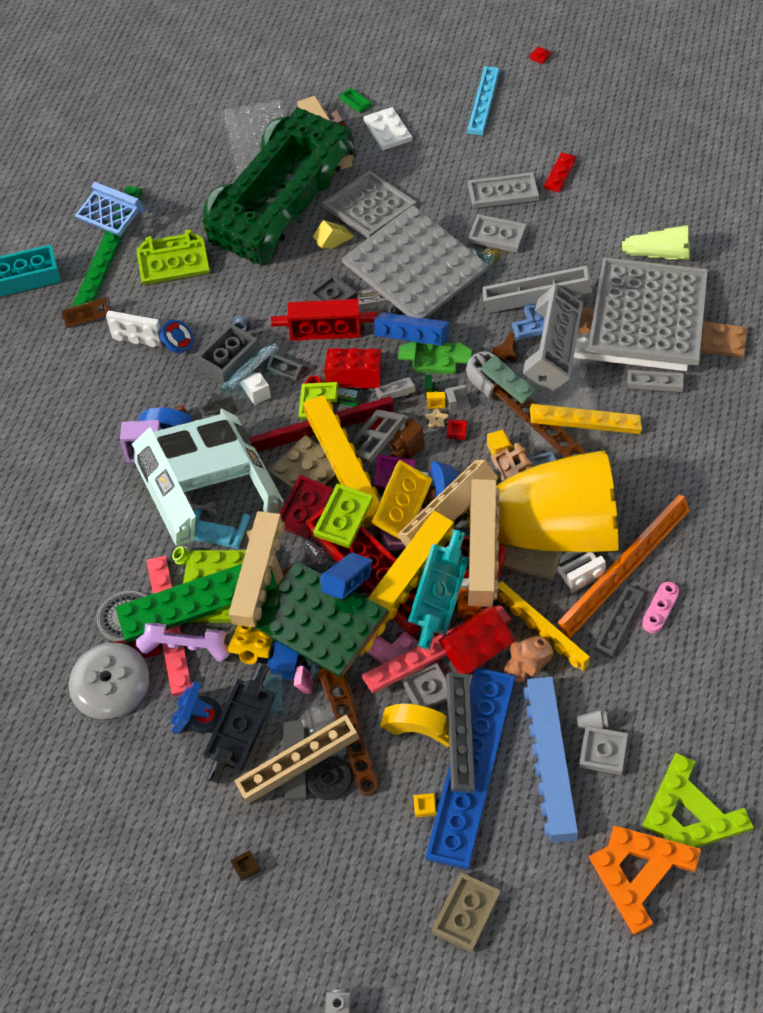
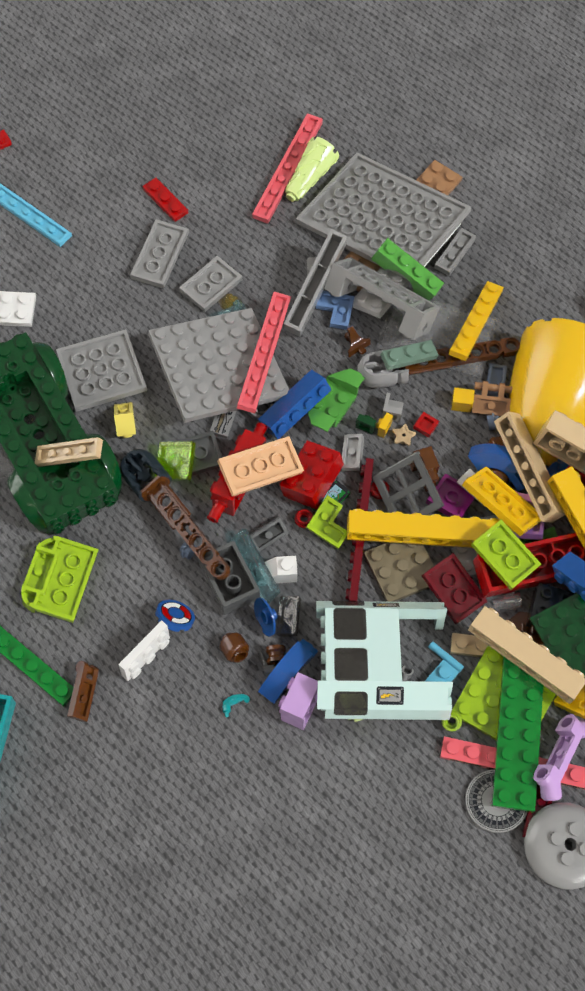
camera: 70 degrees left, 10 degrees up
(126, 405) = (234, 699): none -> teal piece
(171, 385) = (234, 647): none -> reddish brown head
(206, 390) = (266, 616): none -> blue dish
(265, 201) = (68, 452): none -> tan plate
(282, 268) = (156, 492): none -> reddish brown piece
(311, 279) = (177, 458): none -> clear neon green plate
(327, 320) = (260, 466): none -> light nougat plate
(440, 282) = (264, 353): none -> coral plate
(592, 342) = (392, 257): none -> bright green arch
(617, 234) = (286, 169): none -> coral plate

